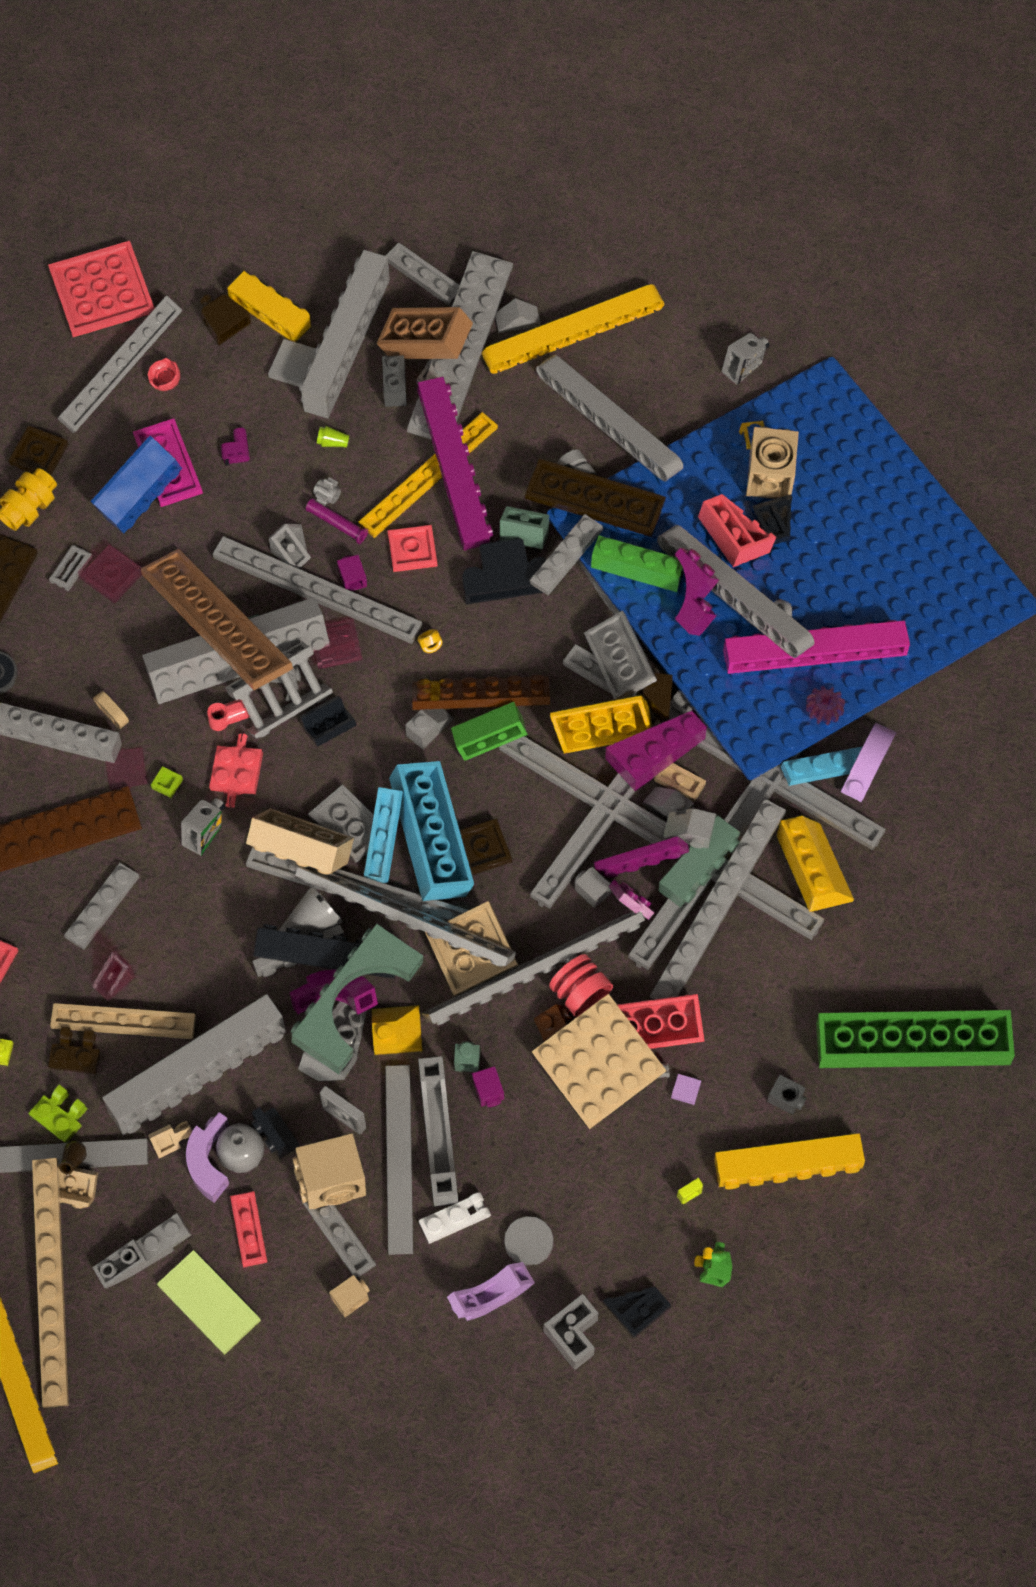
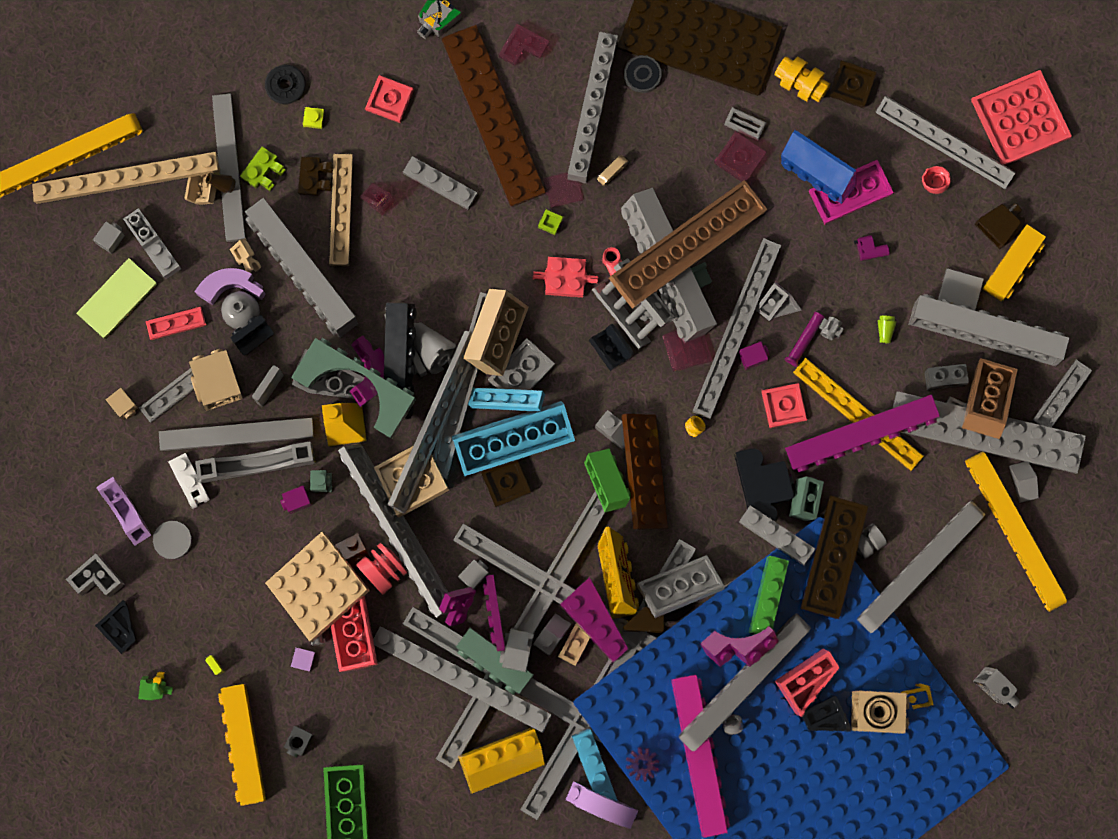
camera: 85 degrees right, 15 degrees up
(126, 1306) = (109, 237): none -> light grey brick
(201, 825) = (504, 253): light grey torso -> none

